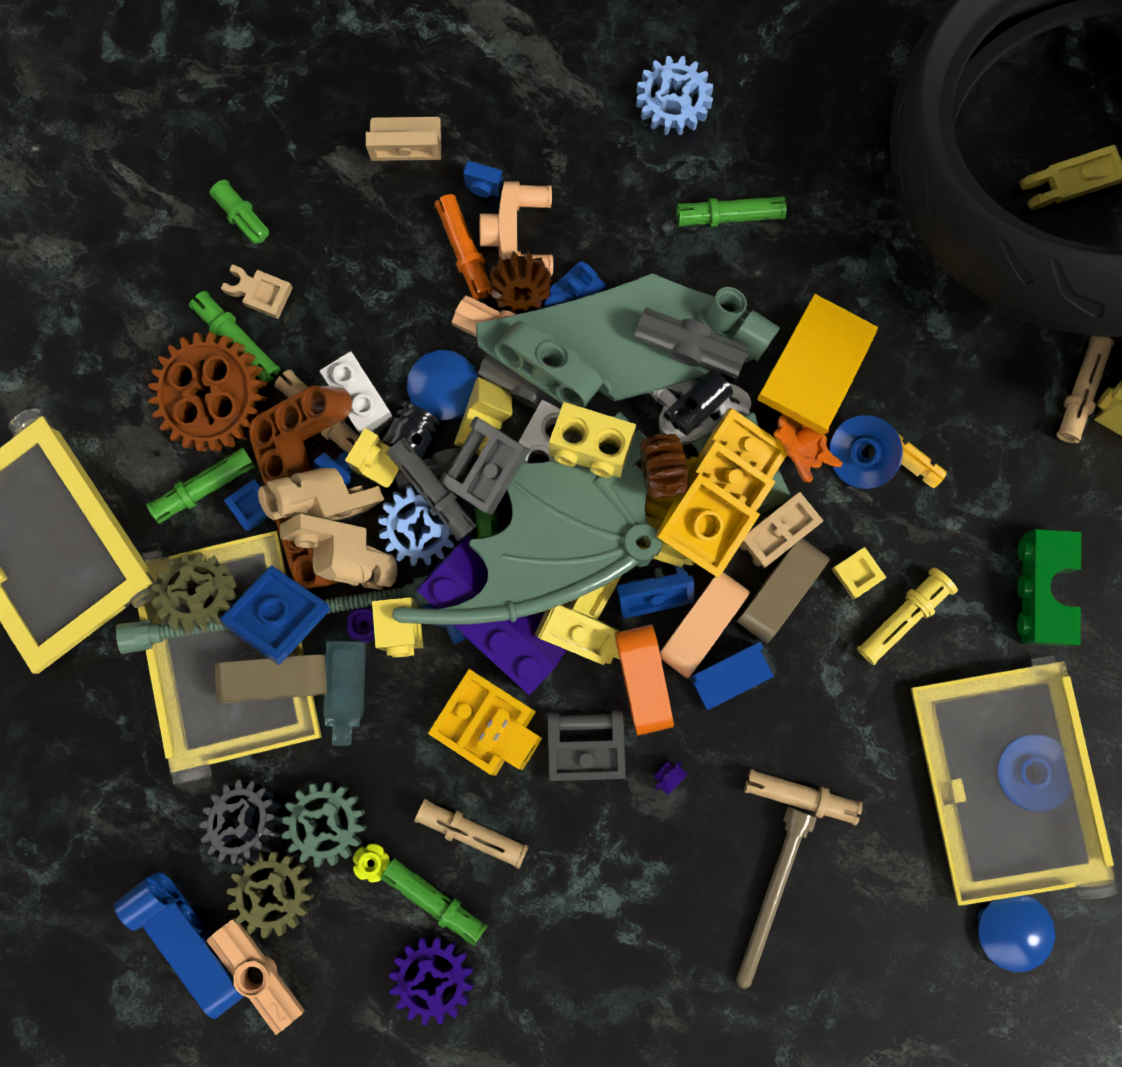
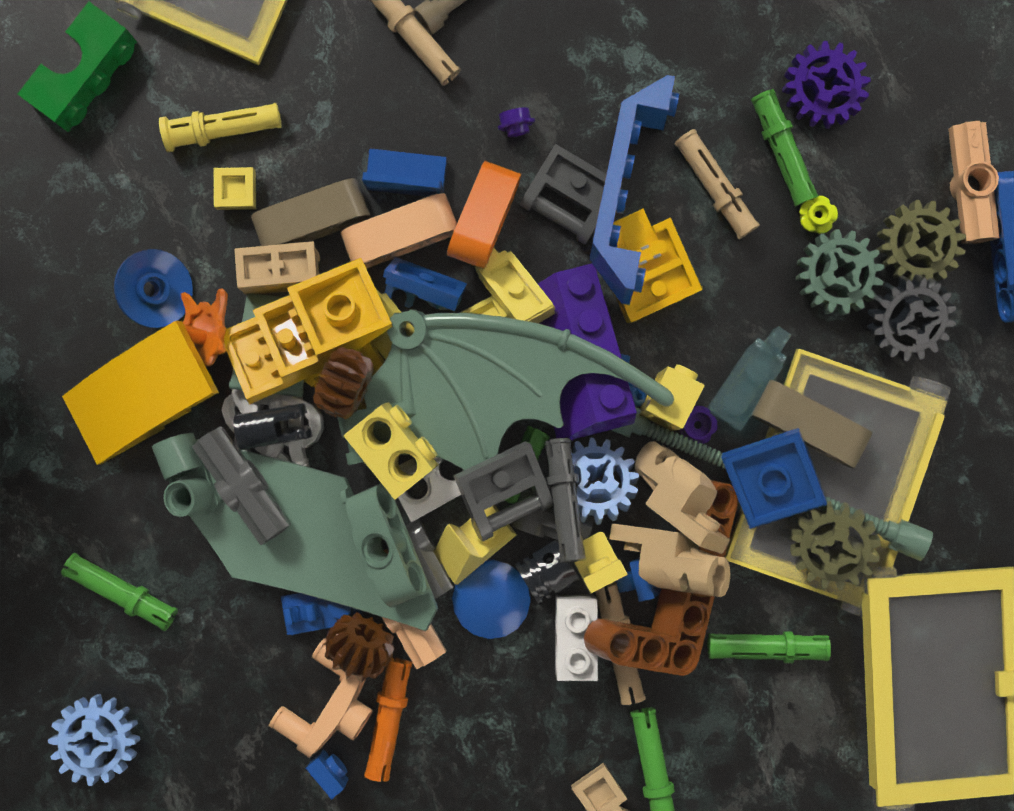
camera: 150 degrees left, 5 degrees up
(177, 399) = (742, 744): dark orange gear -> none
(246, 505) = (738, 601): blue plate -> none
(569, 858) = (645, 109): none -> slope
(919, 463) = (113, 249): yellow axle -> none

